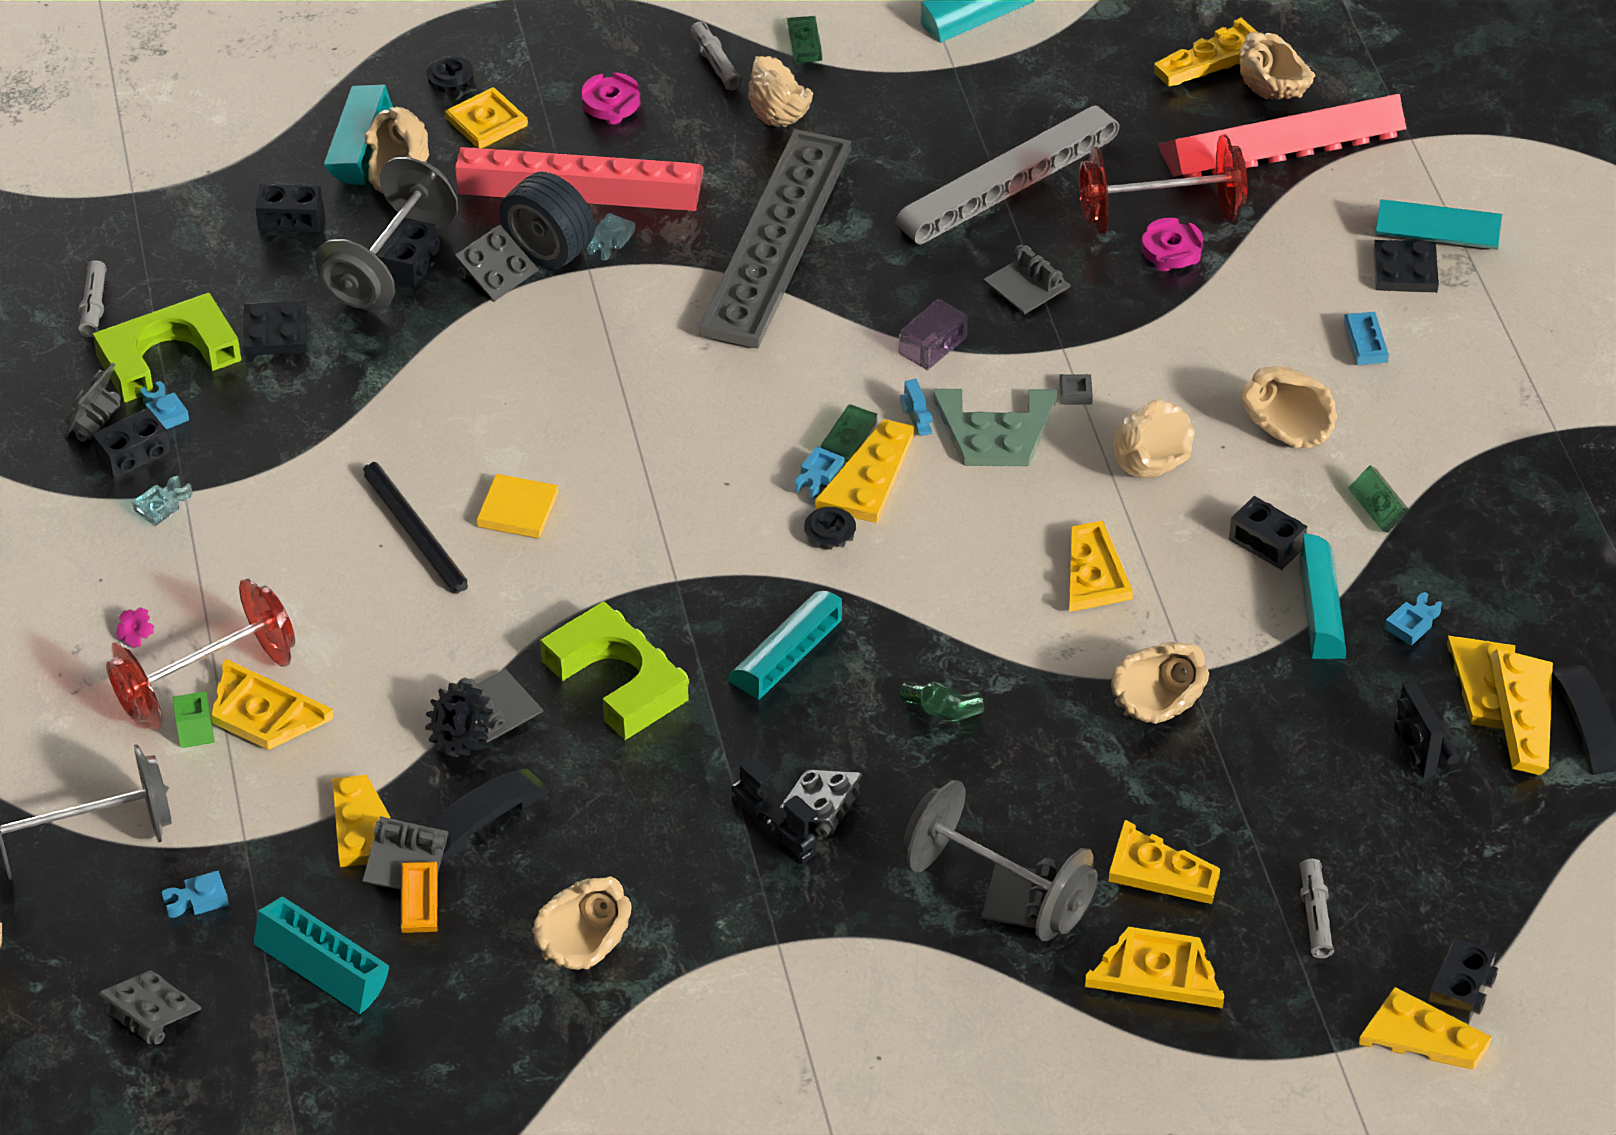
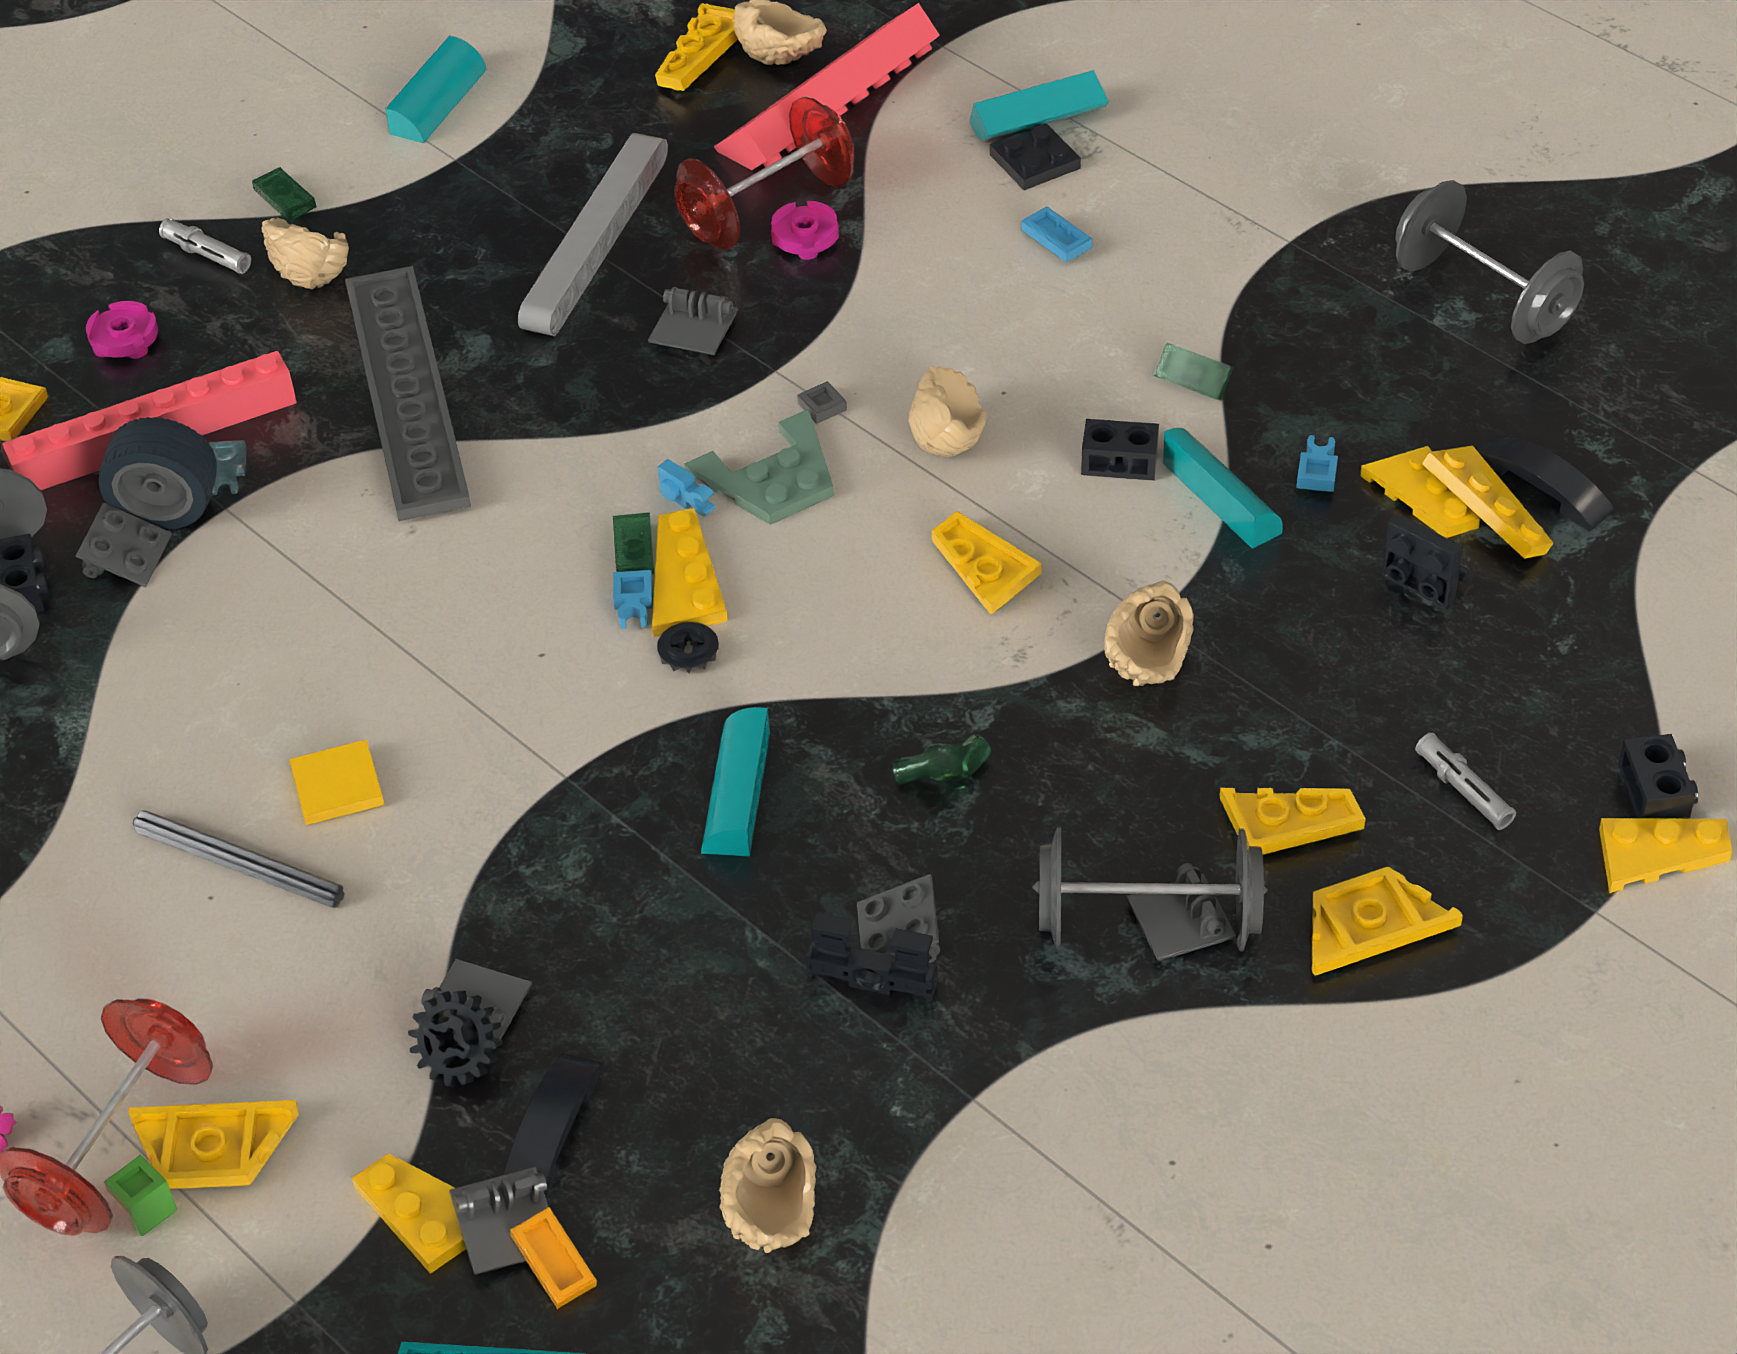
camera: 30 degrees left, 0 degrees up
(606, 635) = (543, 867): lime arch -> none
(933, 334) = (642, 412): clear purple panel -> none
(1290, 406) = (1050, 322): tan hair -> none

